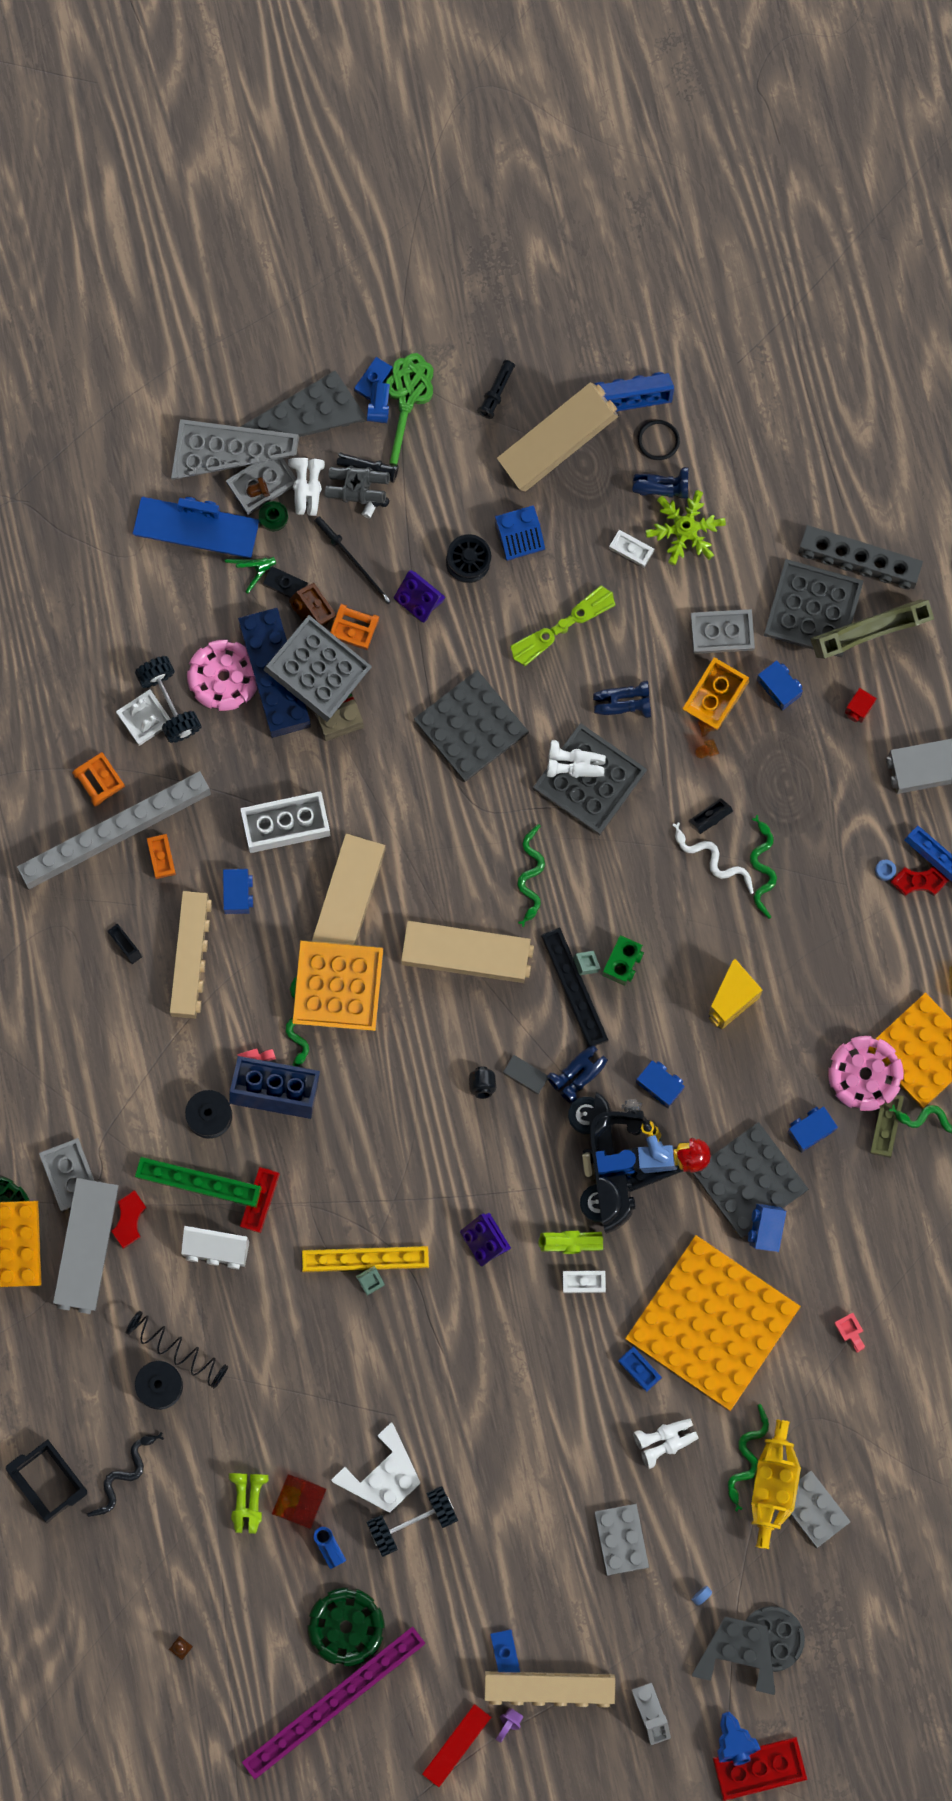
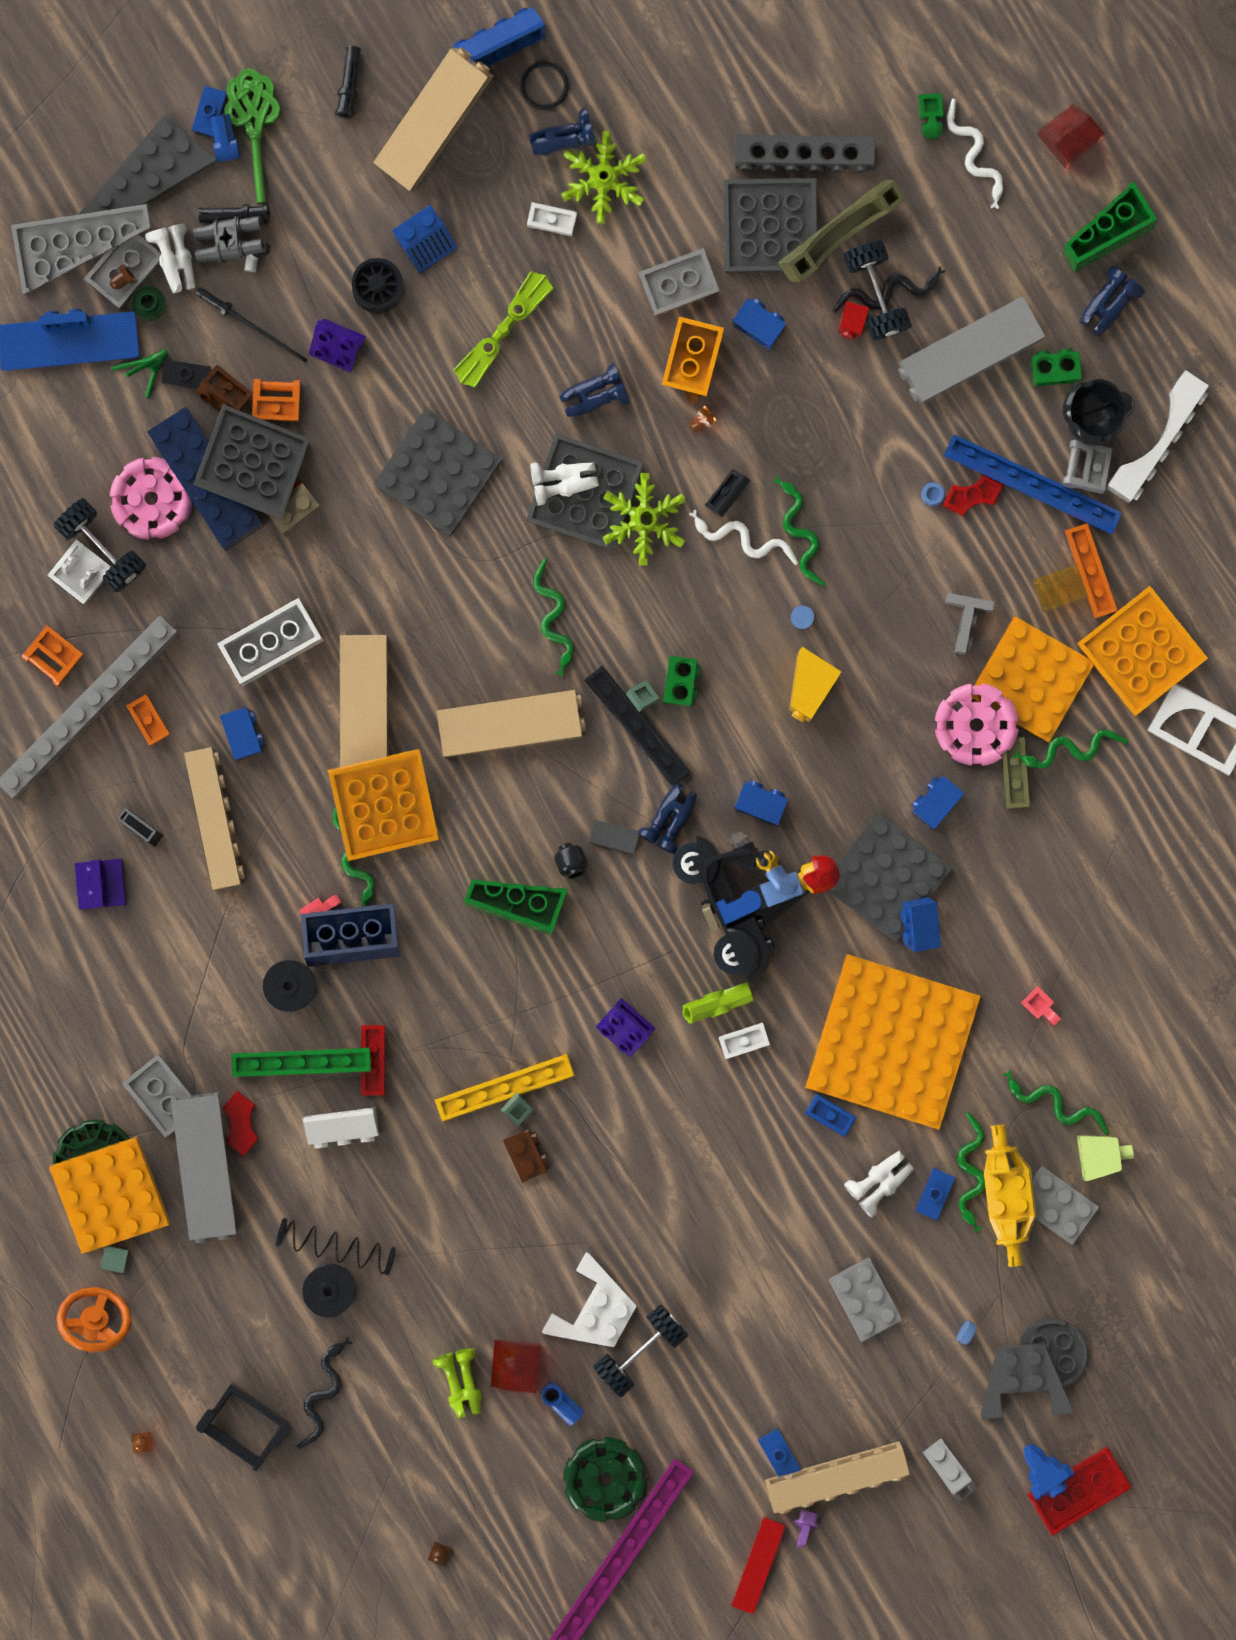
camera: 15 degrees left, 10 degrees up
(75, 980) = (100, 884): none -> dark purple bracket
(365, 1323) = (525, 1155): none -> reddish brown bracket
(424, 1103) = (522, 904): none -> green wedge
(639, 813) = (651, 515): none -> lime piece
(710, 1466) = (934, 1194): none -> blue plate
(743, 939) = (802, 617): none -> medium blue tile
(808, 1397) = (1015, 1088): none -> green animal
(866, 1476) = (1101, 1155): none -> yellowish green torso
(889, 715) = (864, 258): none -> black axle
(889, 971) = (968, 617): none -> light grey bracket
(935, 696) = (887, 289): none -> black animal

